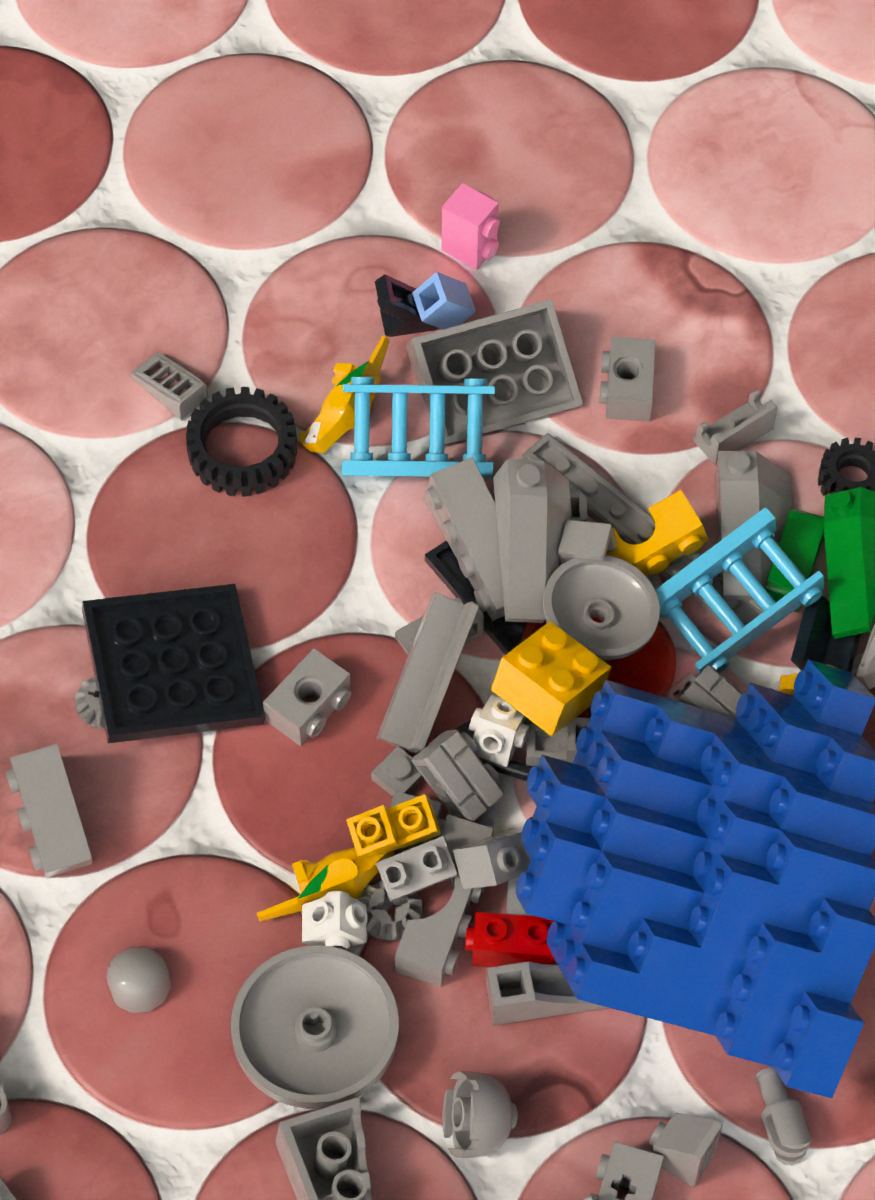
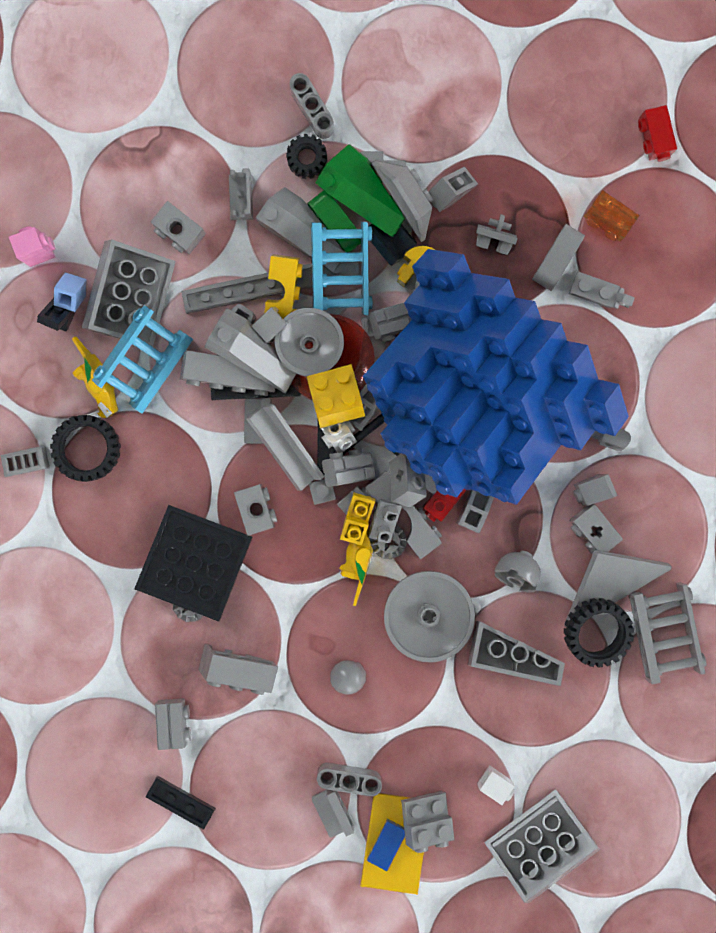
camera: 55 degrees left, 30 degrees up
(334, 921) = (385, 570): white brick -> none

